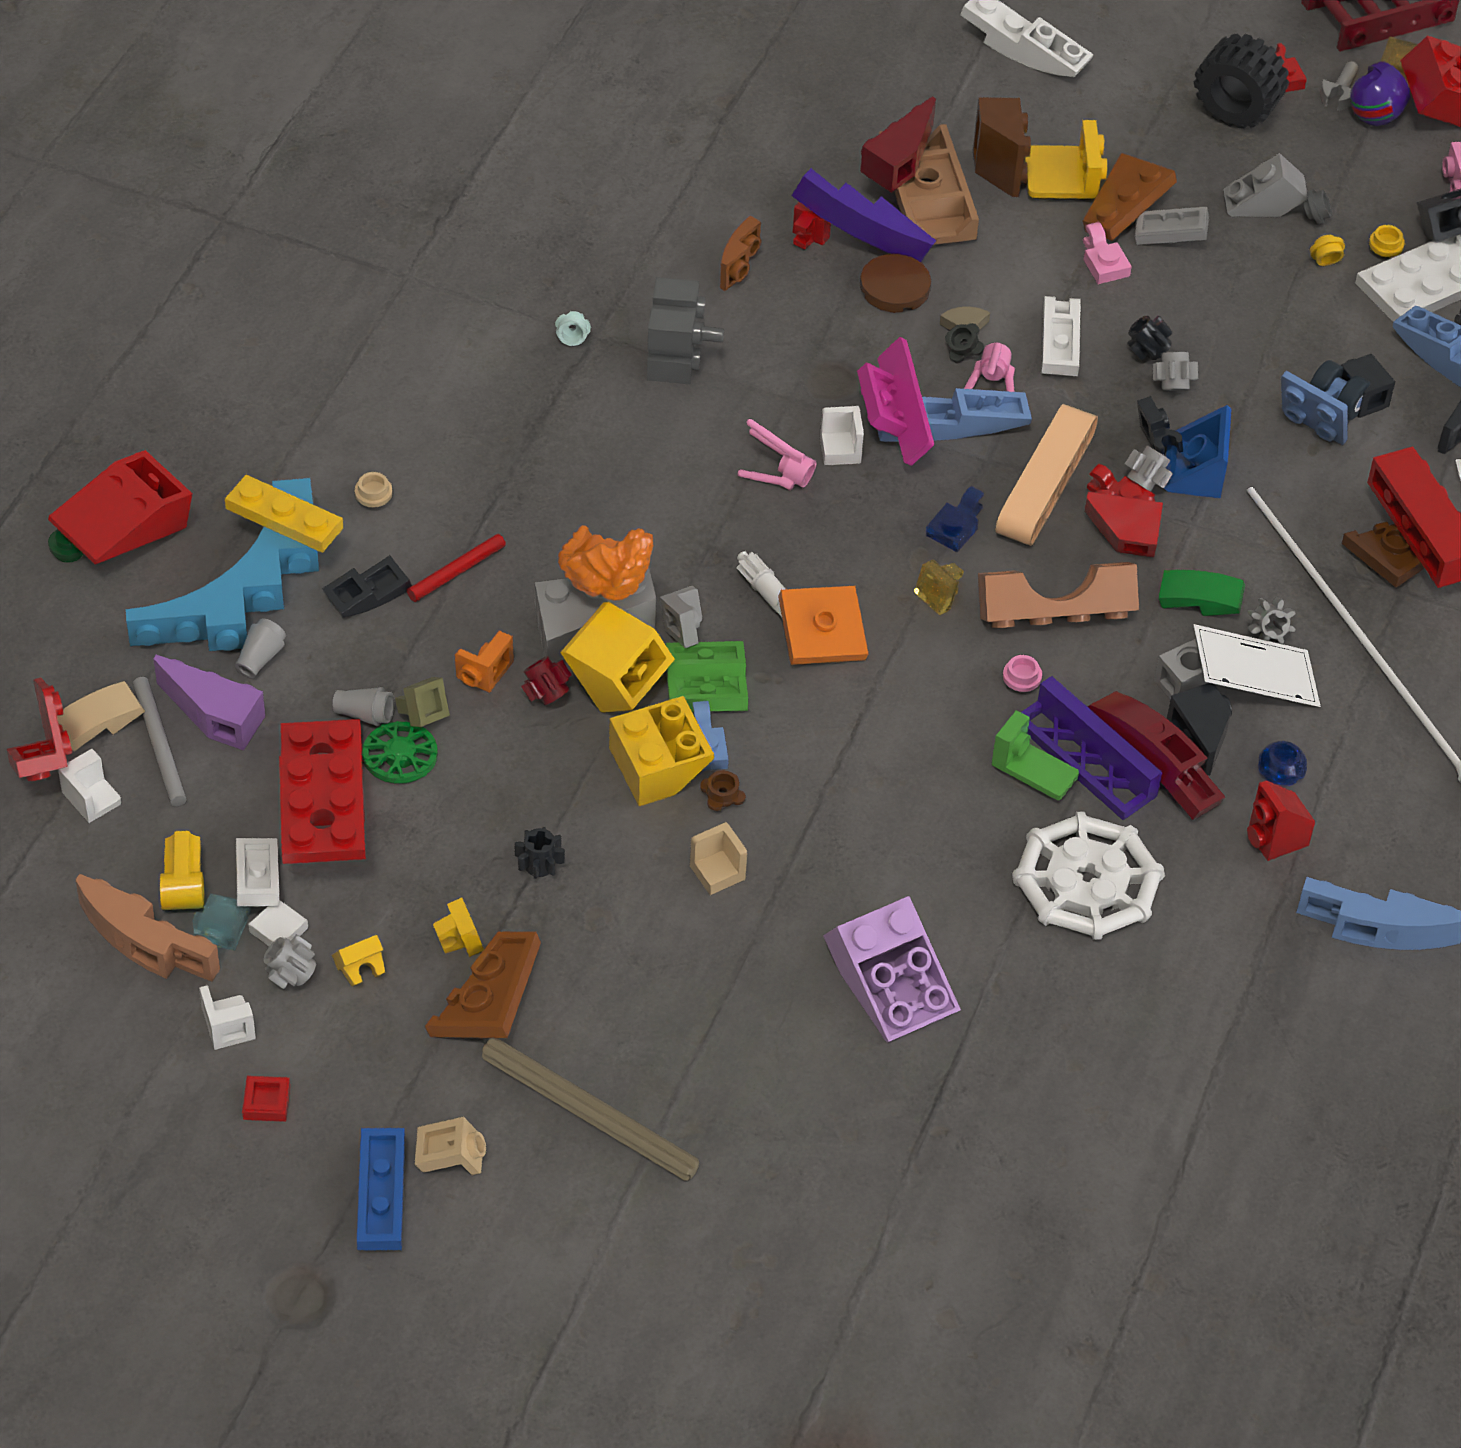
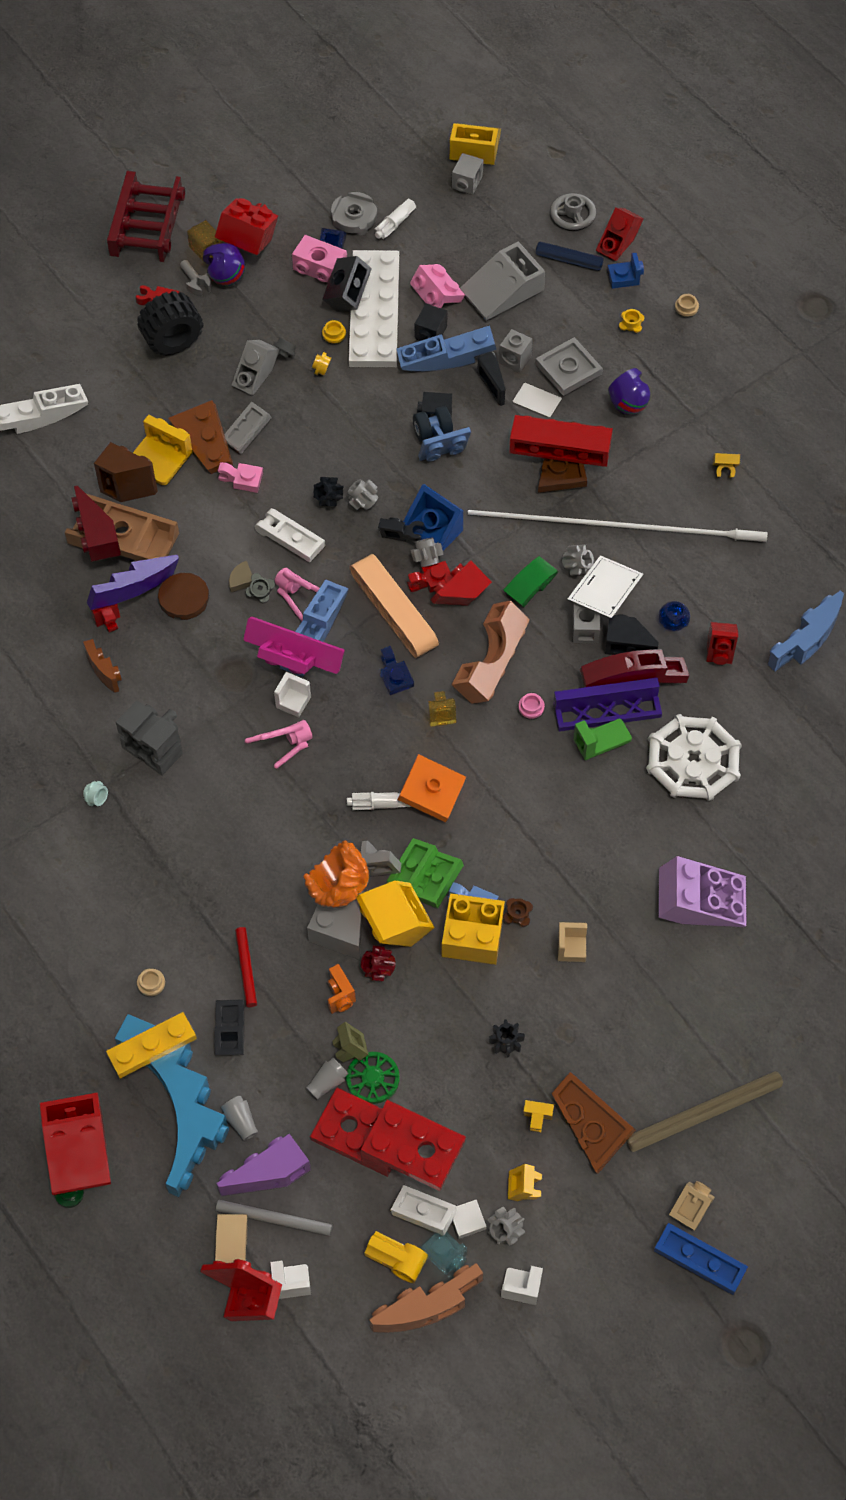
camera: 55 degrees left, 10 degrees up
(266, 1098) = (593, 1292): red tile -> none

